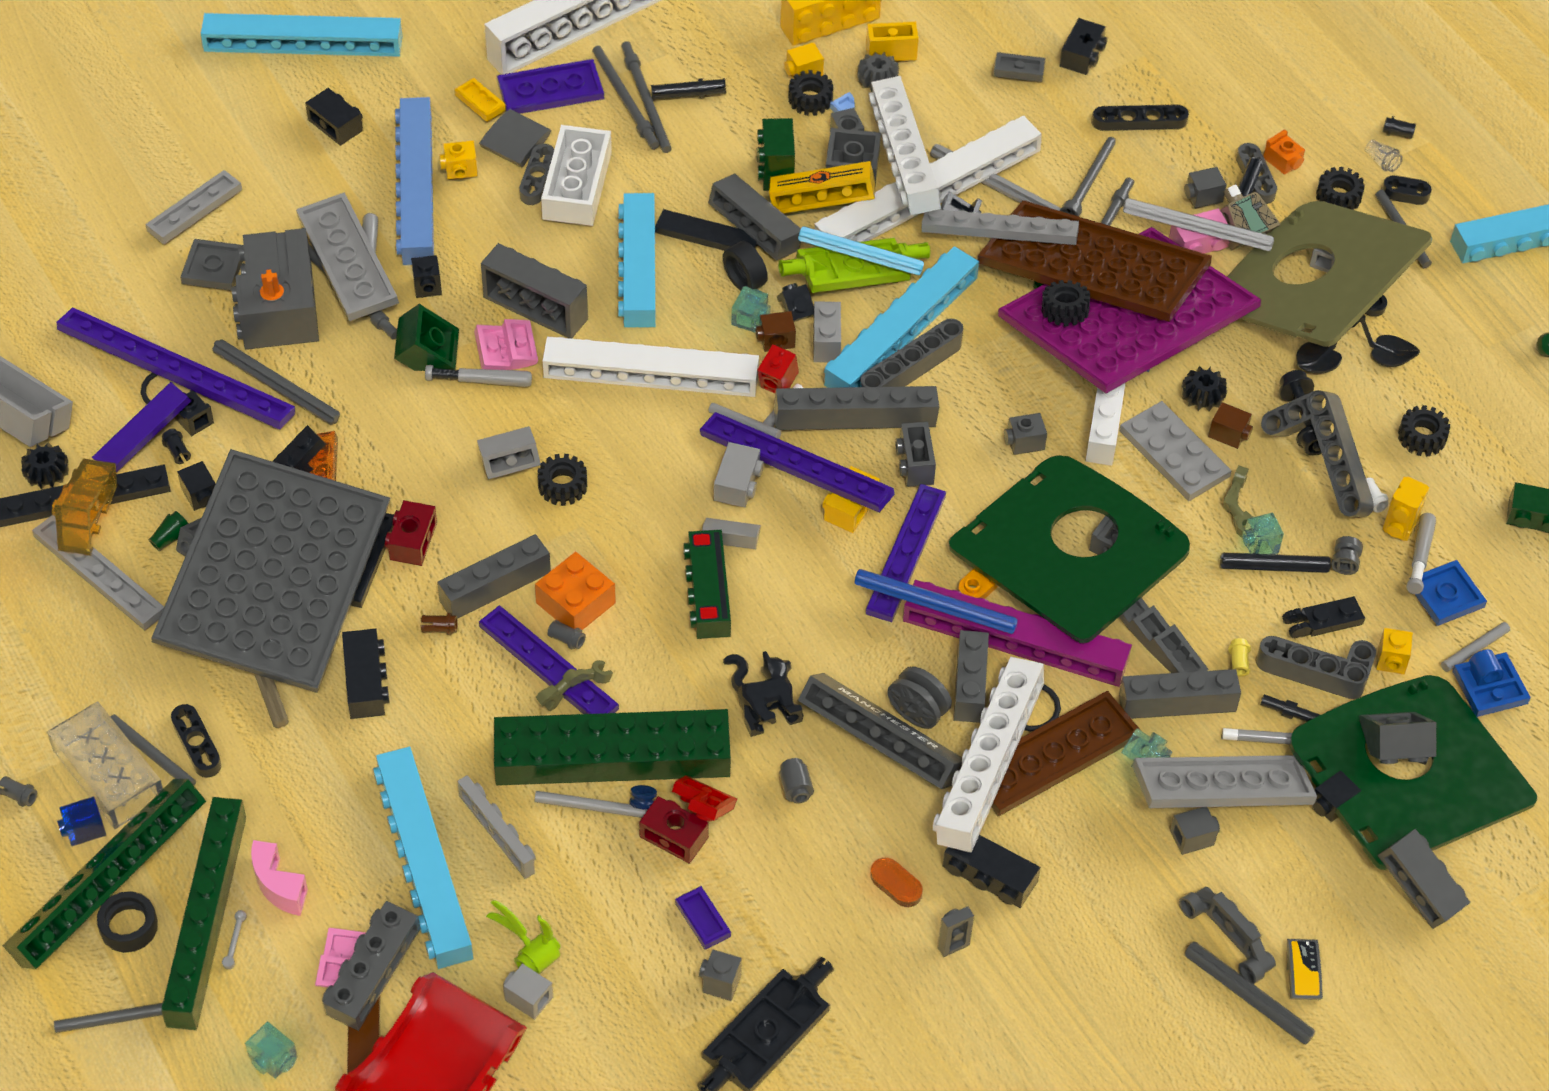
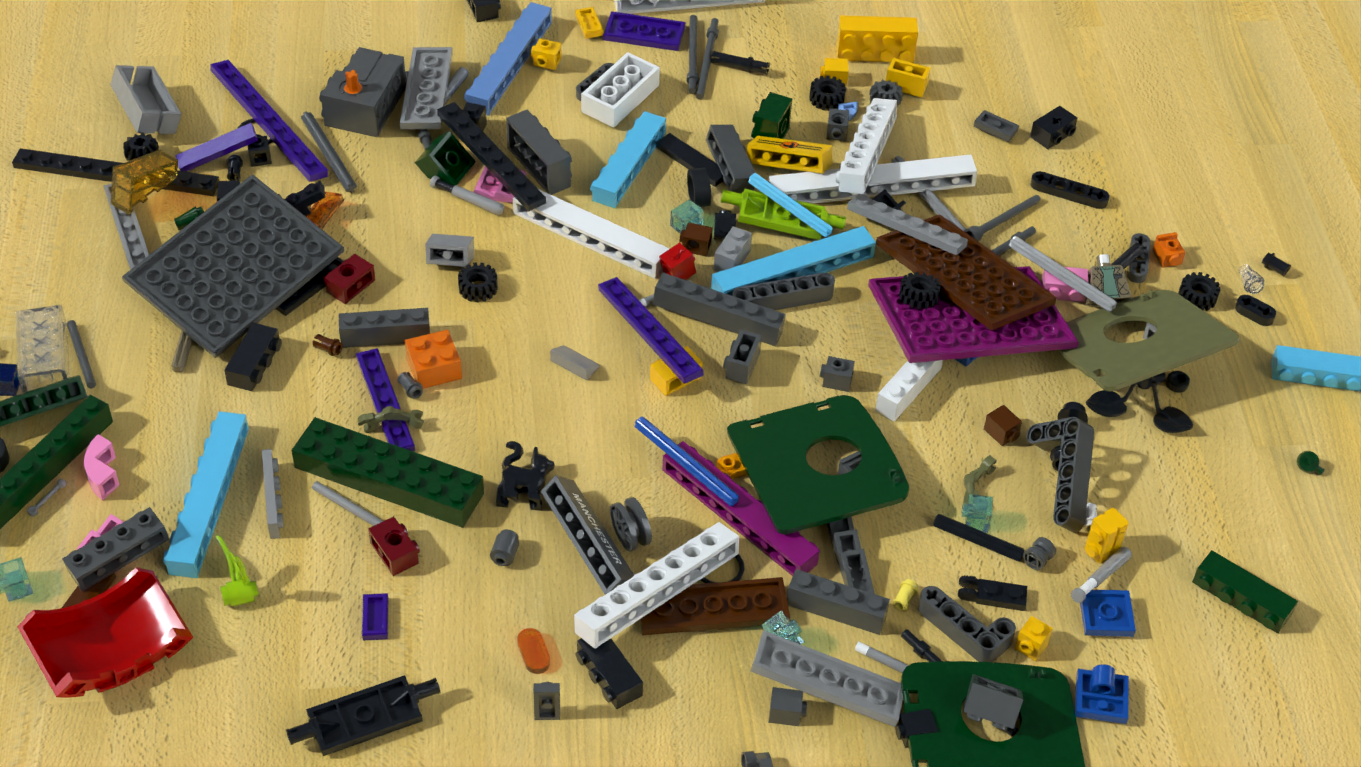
camera: 25 degrees right, 5 degrees down
(193, 207) = (351, 26): light grey plate -> none
(197, 729) = (117, 365): black beam -> none
(212, 264) = (332, 60): dark grey plate -> none
(486, 317) = (491, 156): none -> black plate
(514, 137) = (596, 52): dark grey slope -> none
(527, 991) = (214, 614): light grey brick -> none
(642, 796) = (386, 512): dark blue bush -> none
(703, 799) = (427, 533): red plate -> none
(709, 584) = (532, 389): dark green brick -> none
(721, 974) = (357, 660): dark grey brick -> none
(737, 475) = (601, 323): light grey brick -> none
(745, 420) = (635, 291): light grey bar -> none
(853, 147) = (831, 133): dark grey brick -> none
(907, 548) = (698, 420): dark purple tile -> none
(971, 676) = (683, 523): dark grey brick -> none
(1175, 450) = (949, 429): light grey plate -> none
(1204, 388) = (998, 391): black gear -> none
(1205, 187) = (1086, 251): dark grey brick -> none
(1396, 217) = (1234, 326): dark grey bar -> none
(1426, 419) = (1165, 477): black tyre -> none
(1475, 646) = (1114, 662): light grey bar -> none

